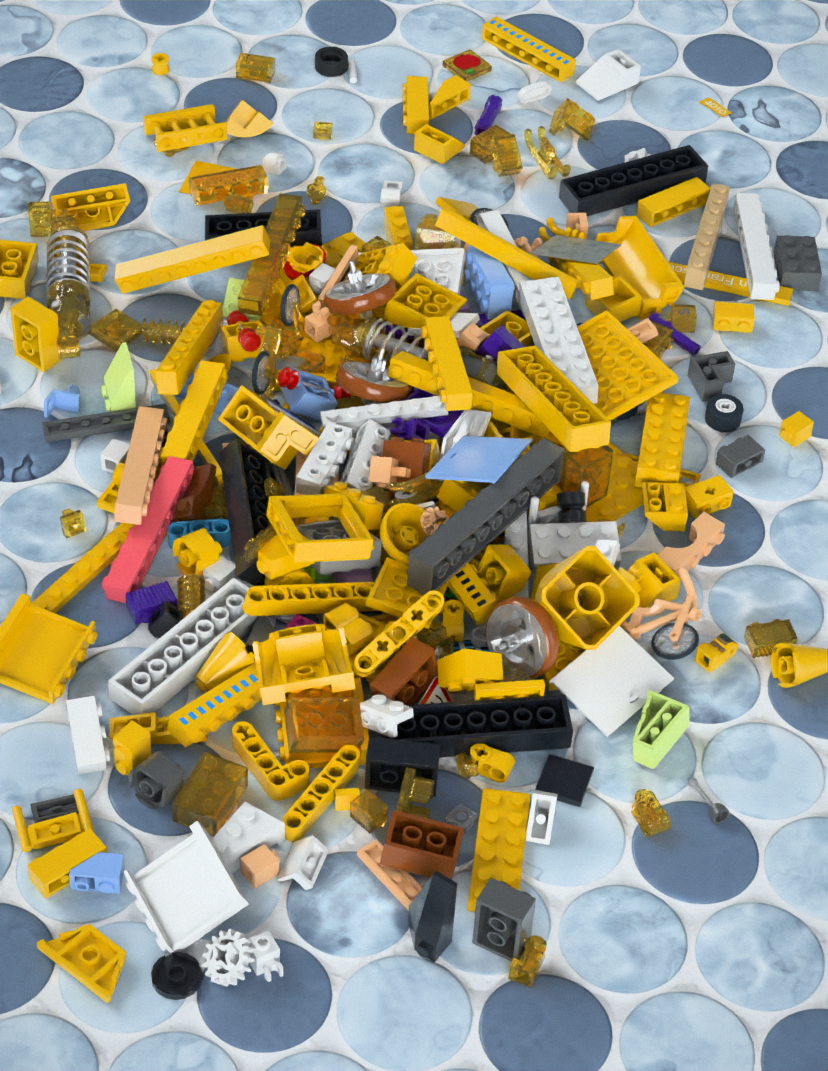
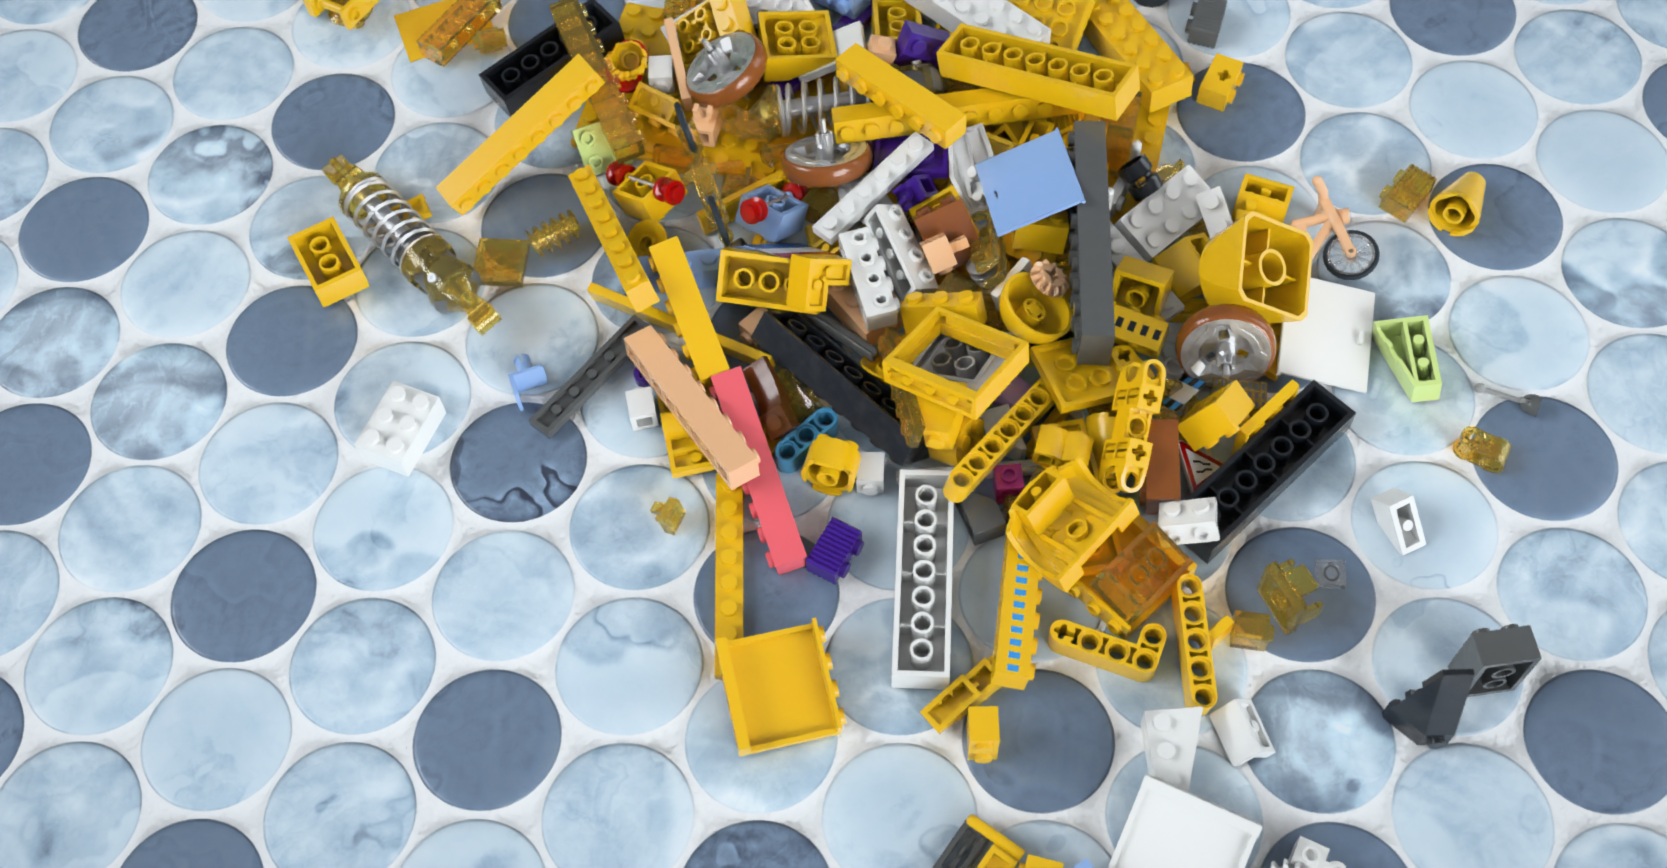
camera: 30 degrees left, 15 degrees up
(35, 333) = (435, 323): yellow brick -> none
(41, 218) = (310, 184): clear yellow bracket -> none
(87, 734) = (921, 749): white wedge -> none
(94, 207) = (350, 132): yellow wedge -> none
(119, 382) = (575, 322): yellowish green slope -> none
(156, 780) = (1037, 749): dark grey brick -> none
(164, 619) = (870, 562): black brick -> none
(190, 593) = (867, 517): clear yellow piece -> none
(210, 793) = (1094, 724): clear yellow brick -> none
(224, 662) = (975, 570): yellow cone -> none
(260, 866) = (1212, 766): light nougat brick -> none
(274, 488) = (842, 342): clear yellow plate -> none
(389, 759) = (1242, 560): black brick -> none
(397, 881) = (1335, 682): light nougat tile -> none
(421, 845) = (1340, 635): dark orange brick -> none
(462, 641) = (1171, 387): none -> clear yellow slope
(464, 769) = (1285, 521): clear yellow arm -> none
(493, 763) = (1304, 497): yellow piece -> none
(499, 840) = (1394, 585): yellow plate -> none
(527, 969) = (1536, 689): clear yellow leg -> none
(566, 779) = (1376, 466): black tile -> none
(665, 505) = (1199, 113): yellow slope -> none
(704, 534) = (1255, 125): light nougat arch -> none
(717, 651) = (1379, 230): yellow leg -> none

